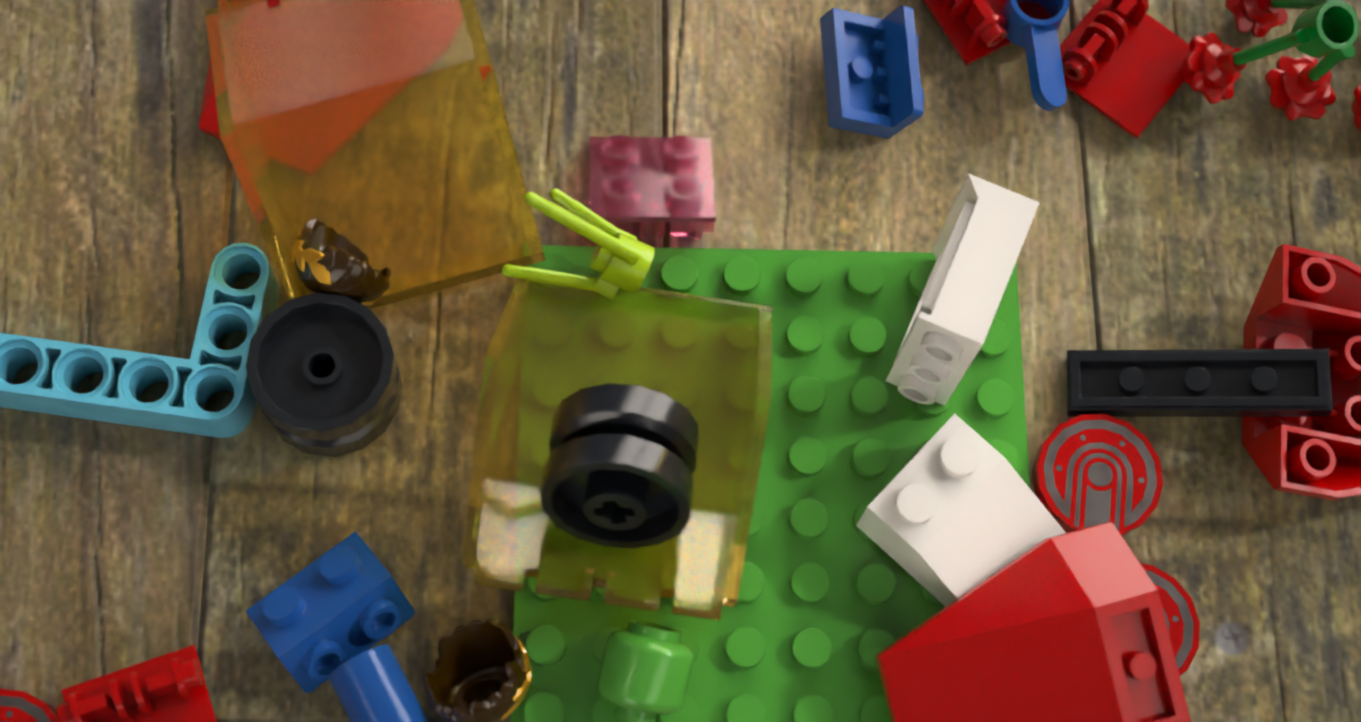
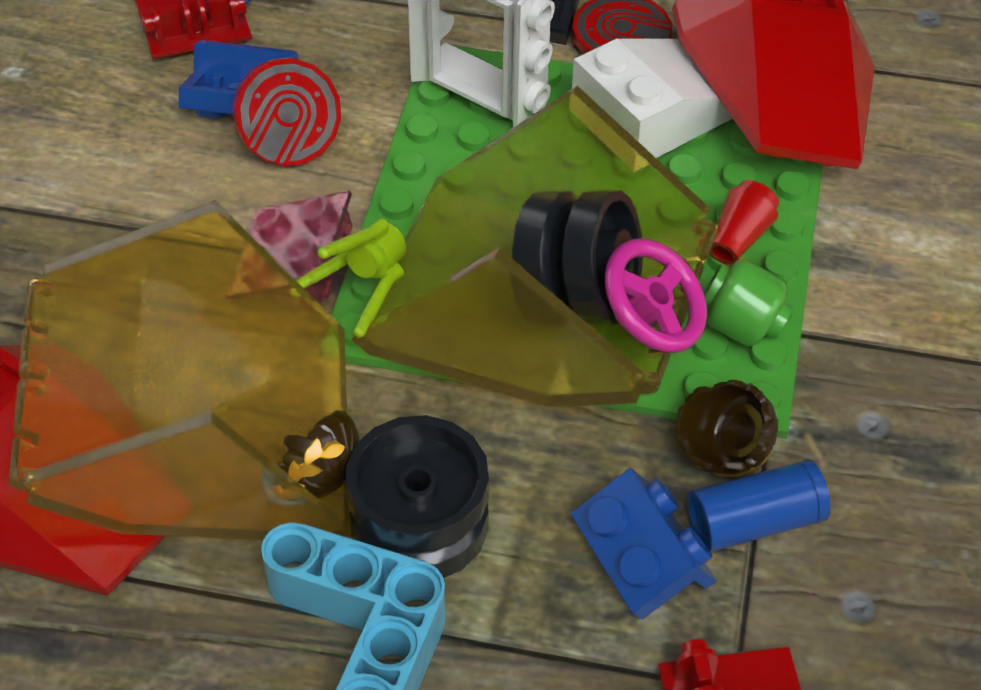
camera: 70 degrees left, 20 degrees down
(574, 531) = (647, 302): none -> dark pink piece
(776, 655) = (743, 220): none -> red cone
(826, 126) = (286, 111): none -> tile

